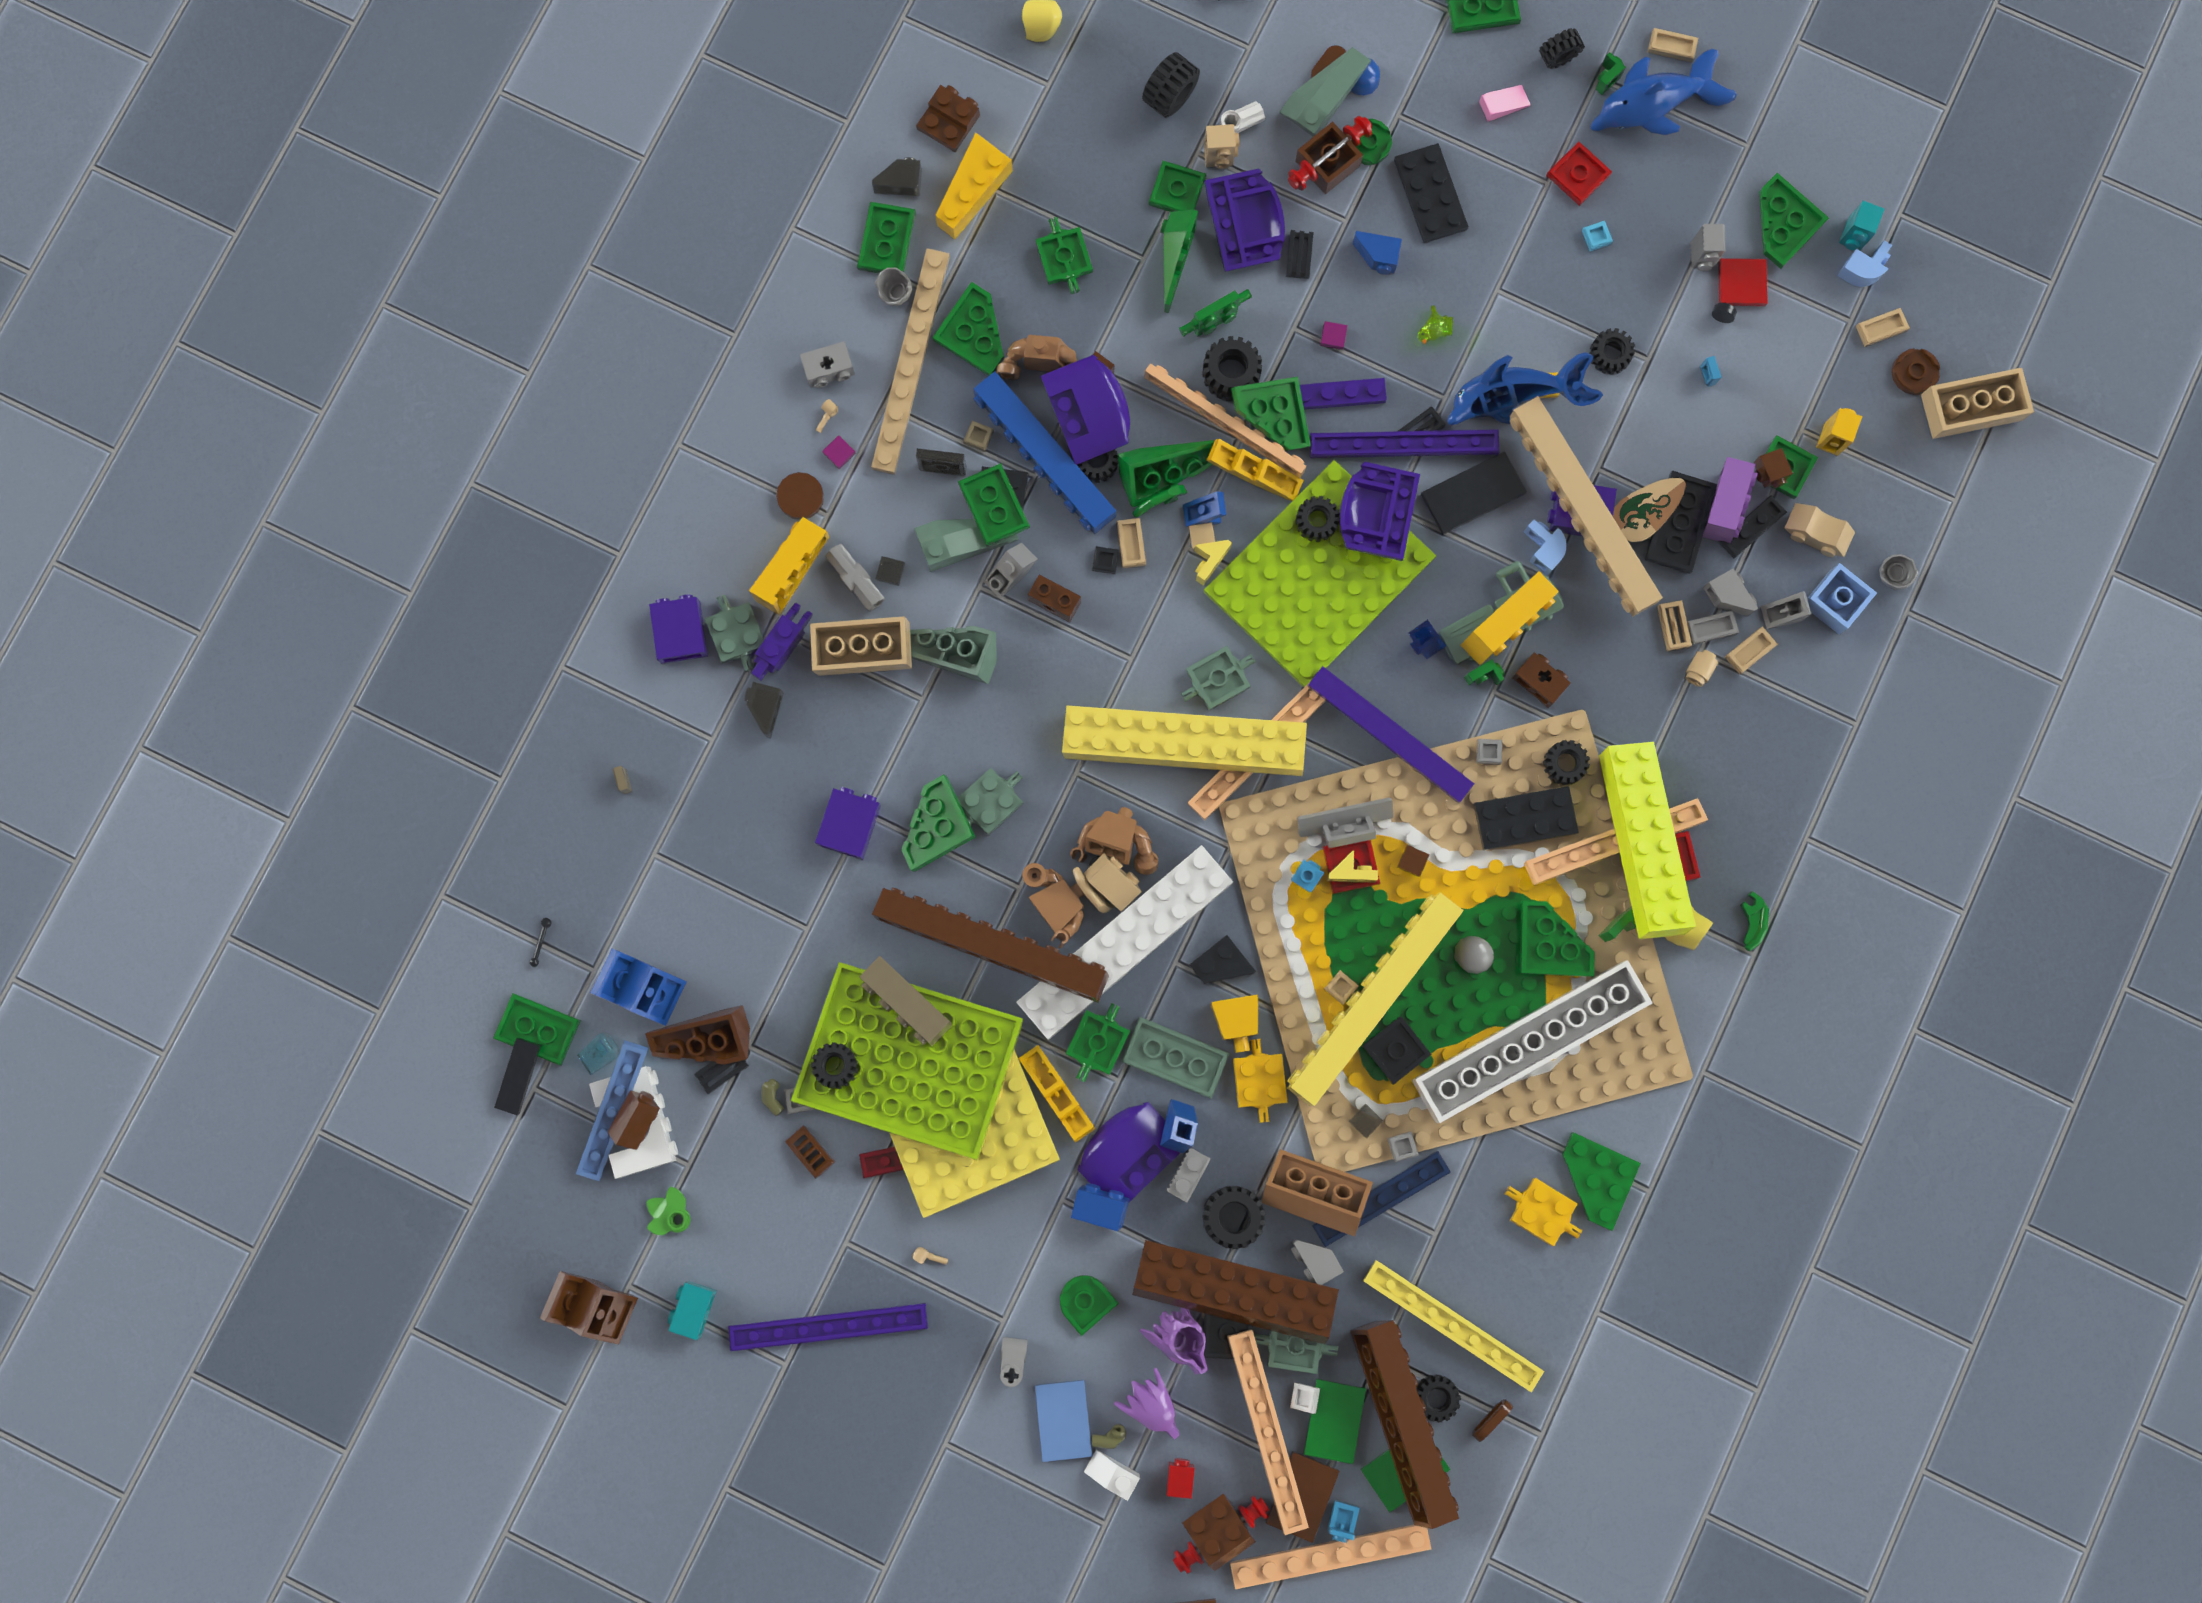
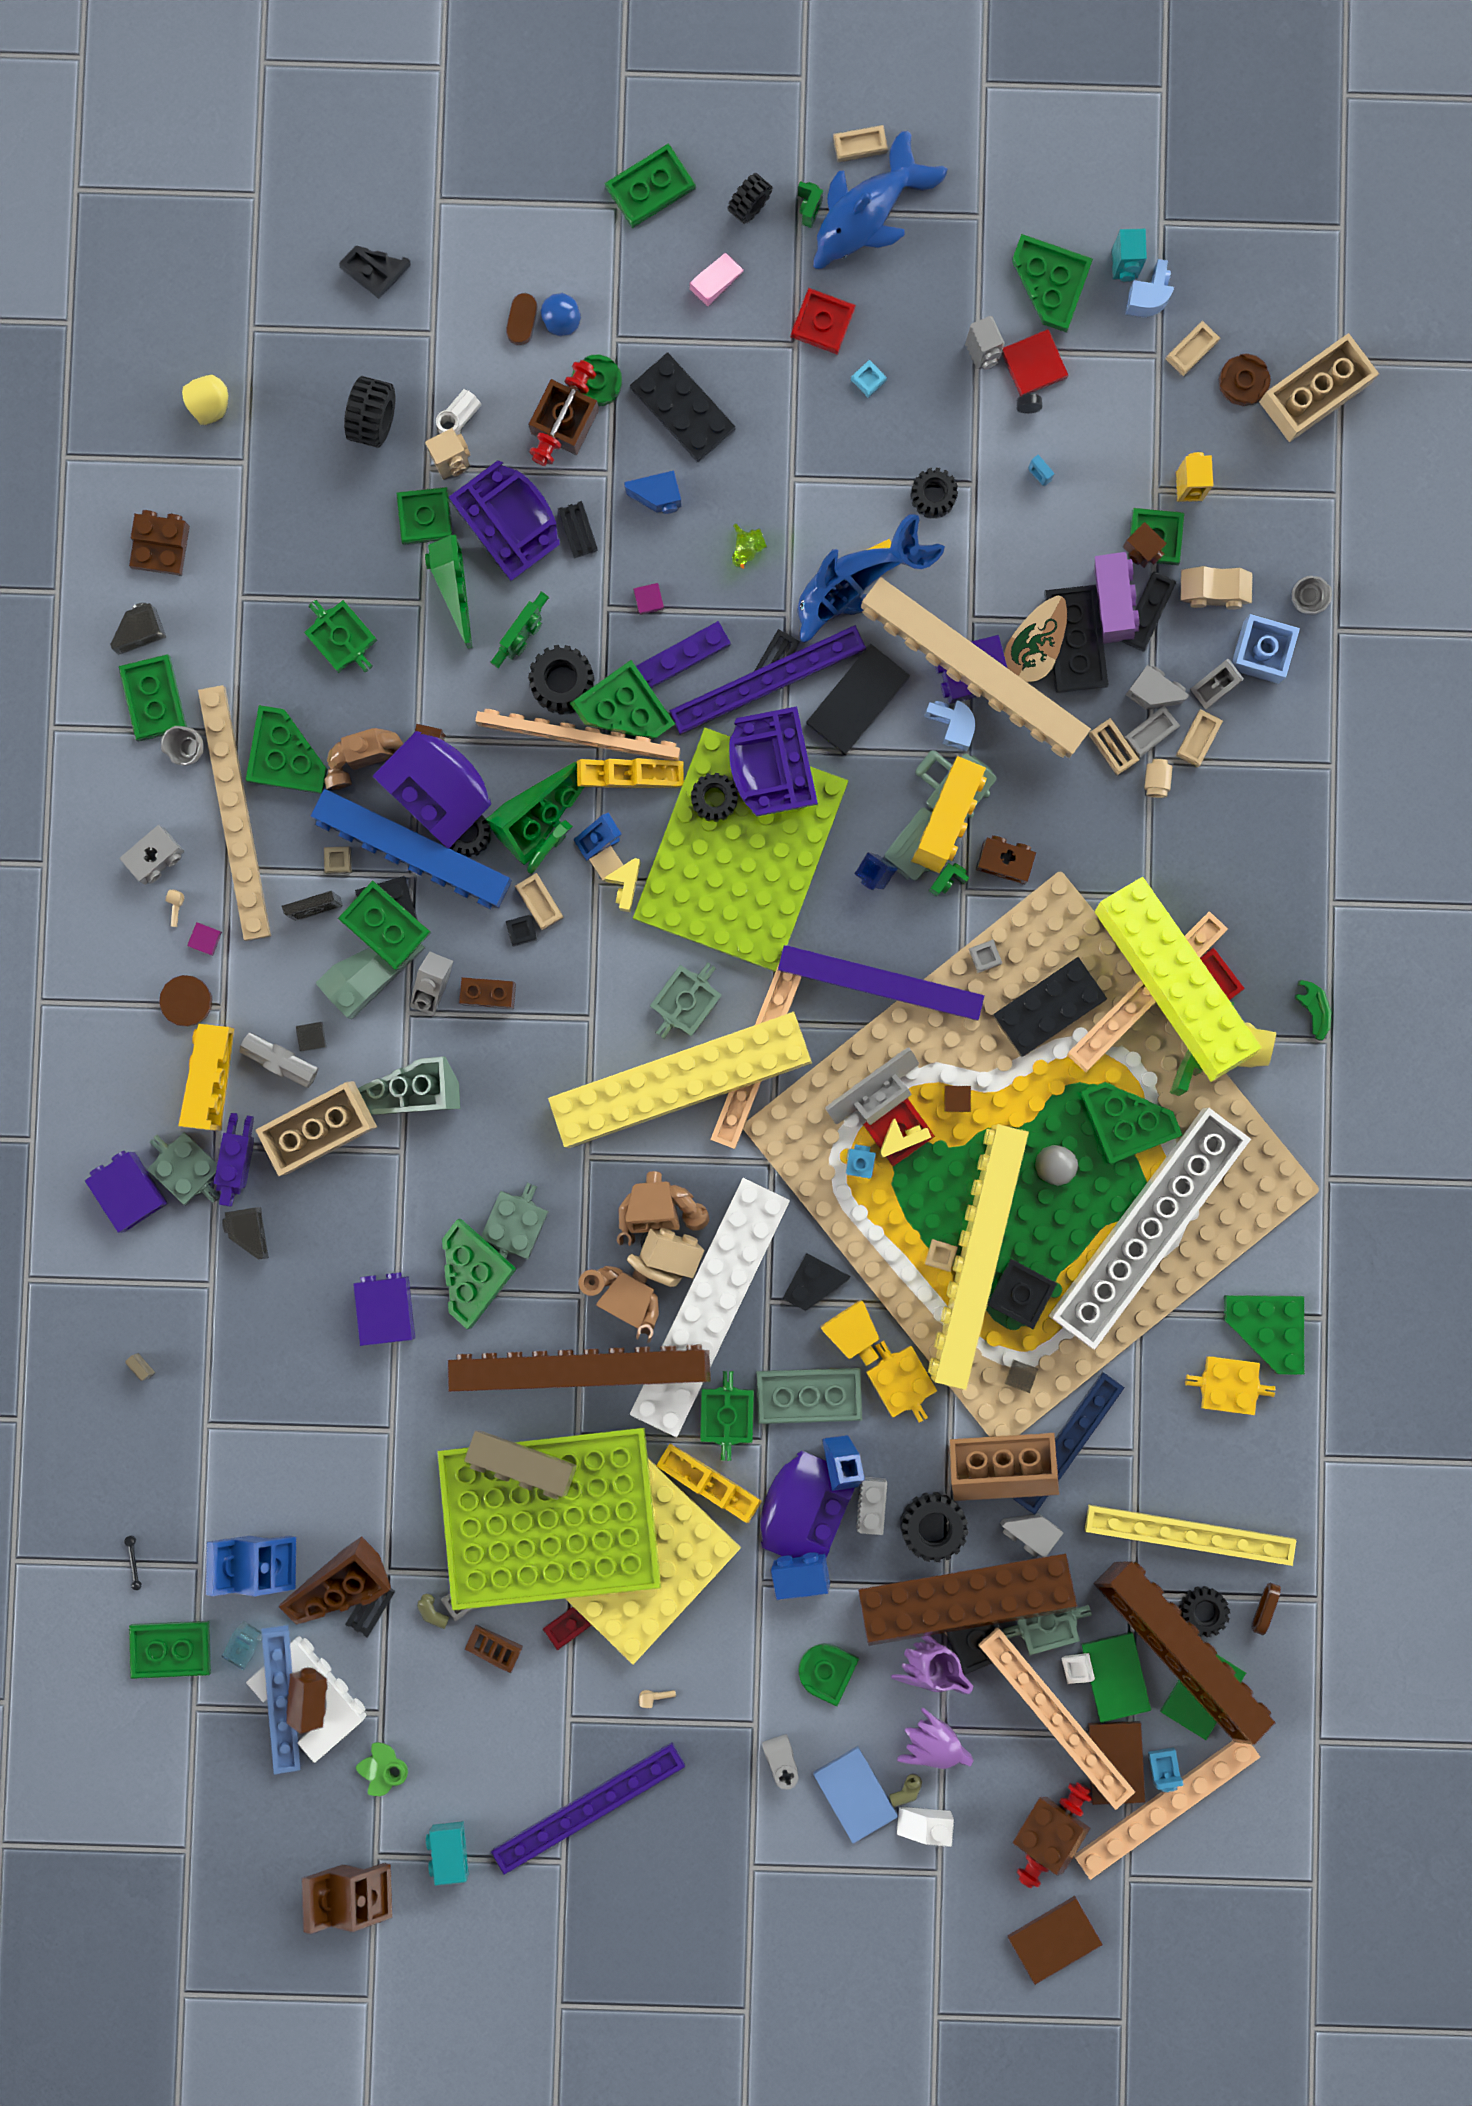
camera: 25 degrees left, 5 degrees up
(517, 1076) = (172, 1705): black tile -> none
(824, 1055) = (495, 1558): black tyre -> none
(974, 183) = (215, 604): yellow wedge -> none
(1180, 1478) = (992, 1800): red brick -> none
(1323, 94) = (528, 354): sand green wedge -> none
(1402, 1146) = (1067, 1384): light grey tile -> none
(1576, 752) = (1081, 930): black tyre -> none

